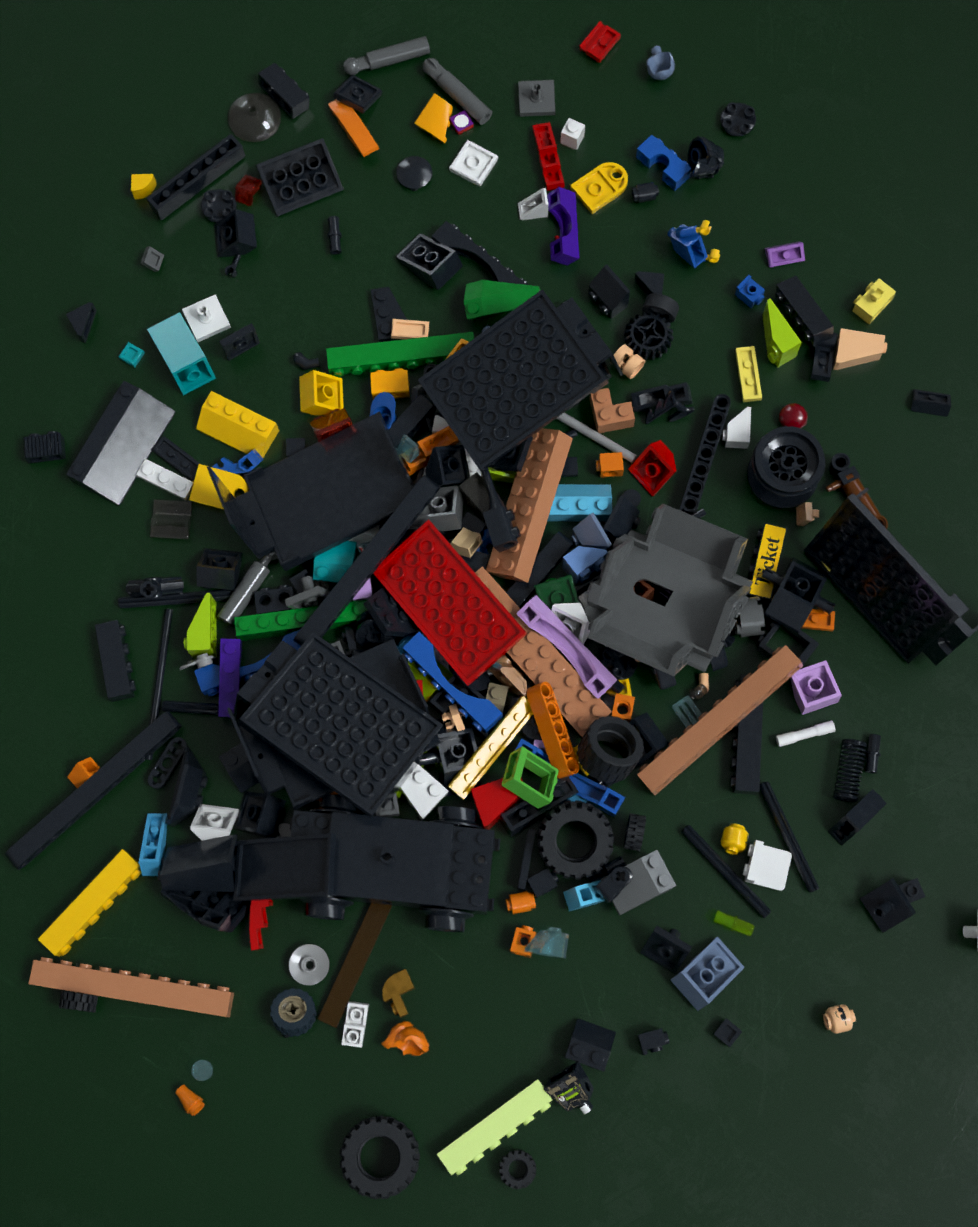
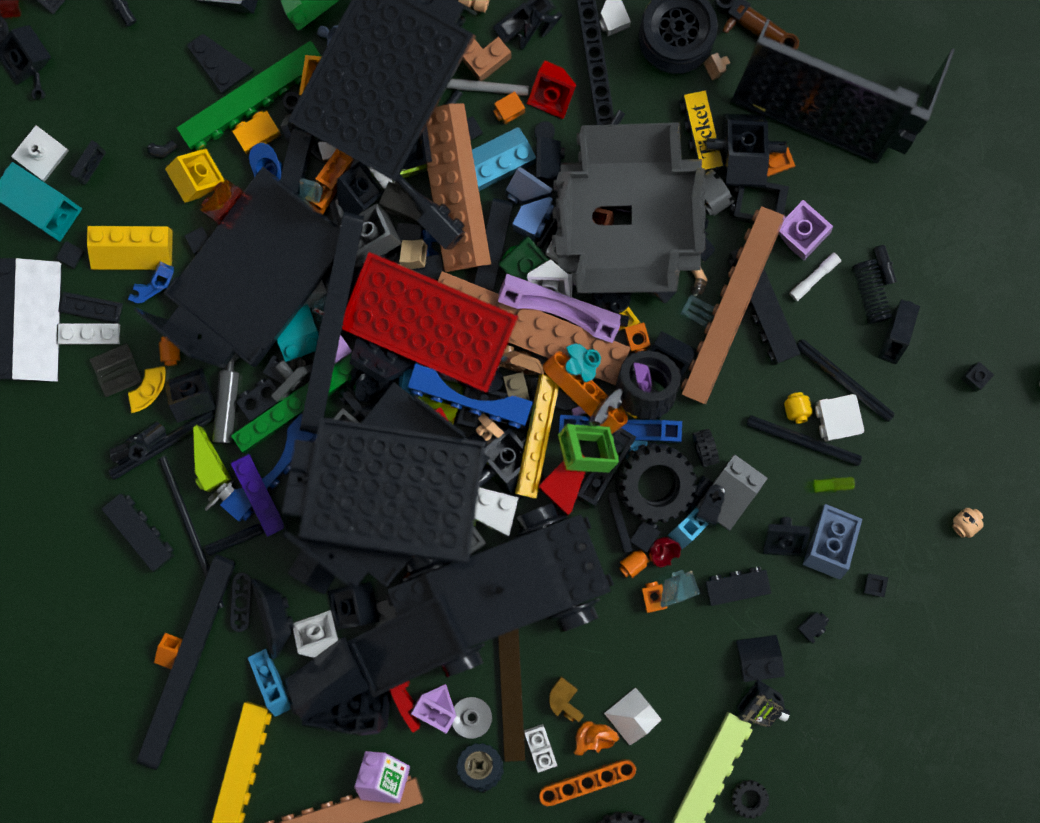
camera: 30 degrees left, 10 degrees up
(185, 409) = (70, 254): none -> black tile
(189, 548) = (148, 390): none -> yellow tile
(202, 975) = (381, 778): none -> lavender slope
(204, 489) = (132, 325): yellow tile -> none
(221, 526) = (168, 352): none -> orange brick
(282, 940) = (436, 708): none -> lavender slope
(370, 1072) = (579, 789): none -> orange beam
(409, 329) = (246, 67): light nougat tile -> none
(451, 1038) = (633, 716): none -> white slope
(552, 905) = (663, 551): none -> dark red hair
(561, 701) = (580, 363): none -> teal plate
(569, 747) = (609, 404): none -> slope
(602, 969) = (737, 586): none -> black brick
(609, 740) = (643, 377): none -> medium lavender slope
(888, 905) = (964, 399): black tile -> none

